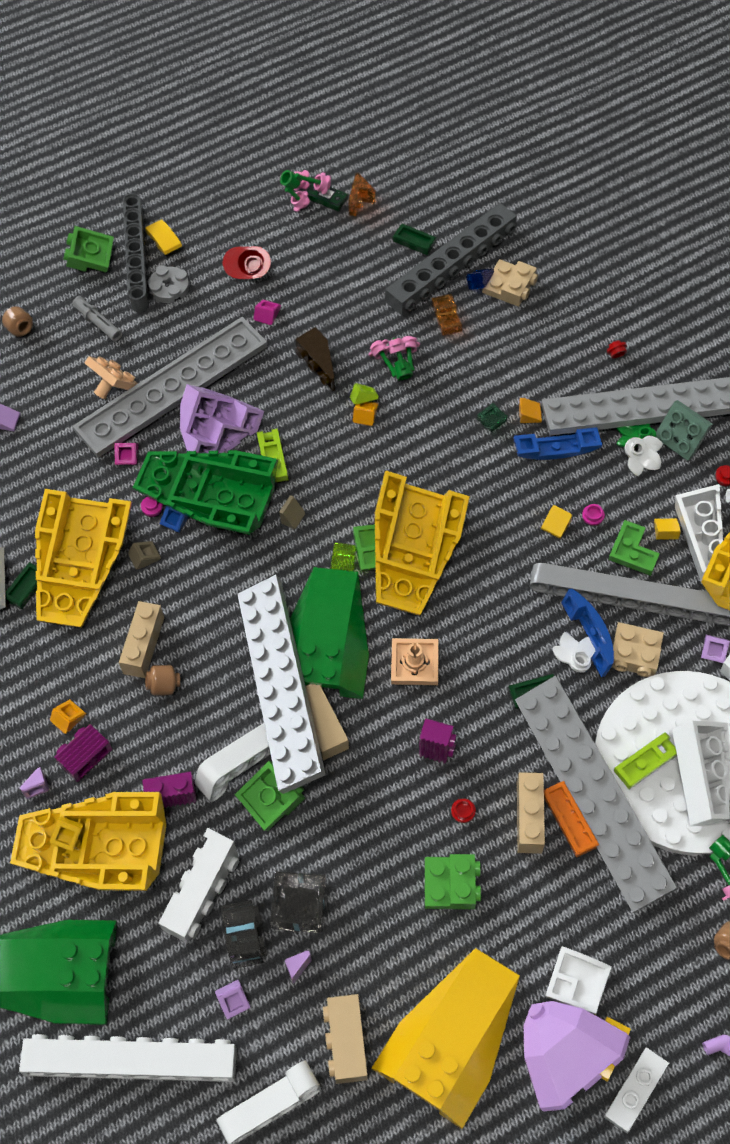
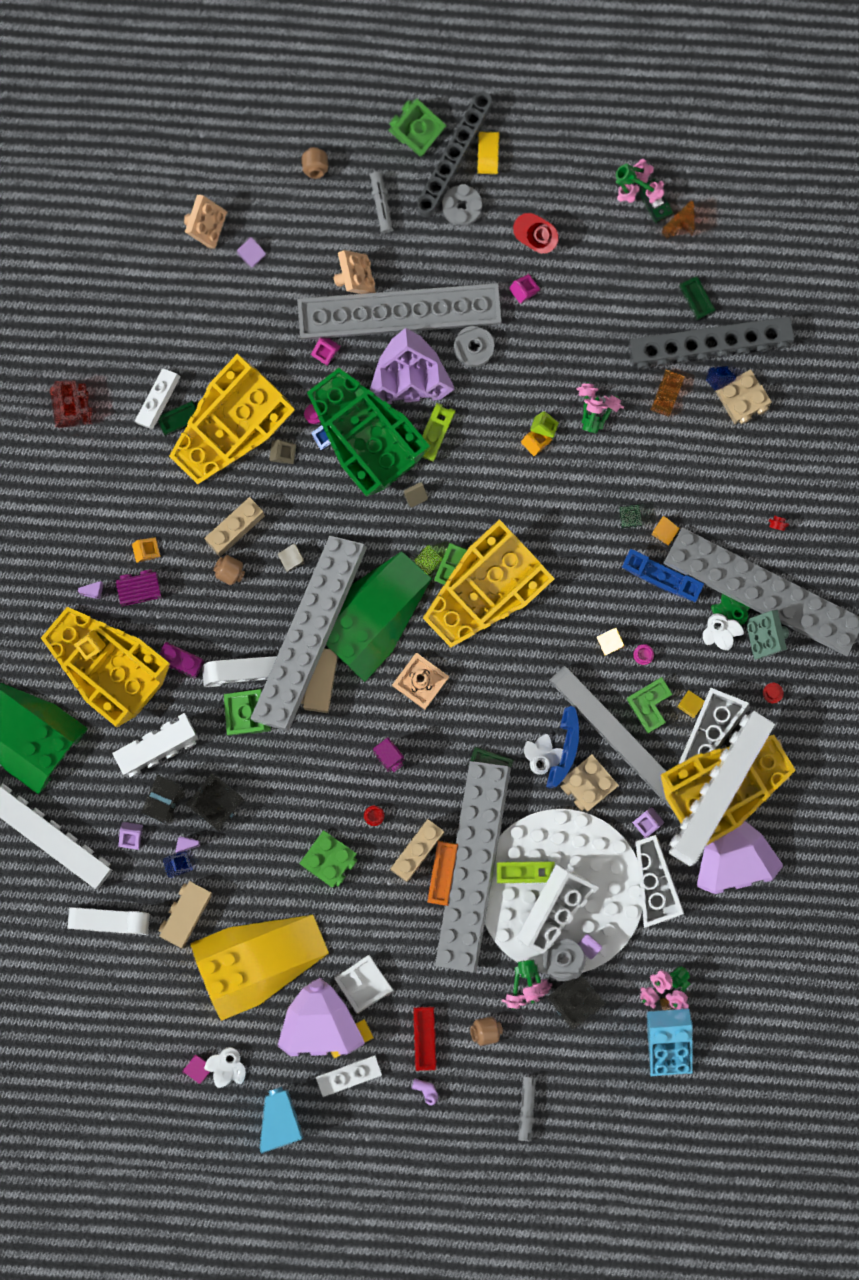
camera: 35 degrees right, 20 degrees up
(215, 634) = (291, 557): none -> slope
(256, 384) = (478, 336): none -> light grey plate
(301, 994) = (177, 864): none -> clear blue slope
(315, 350) = (535, 360): dark brown slope -> none
(681, 993) = (424, 1038): none -> red plate

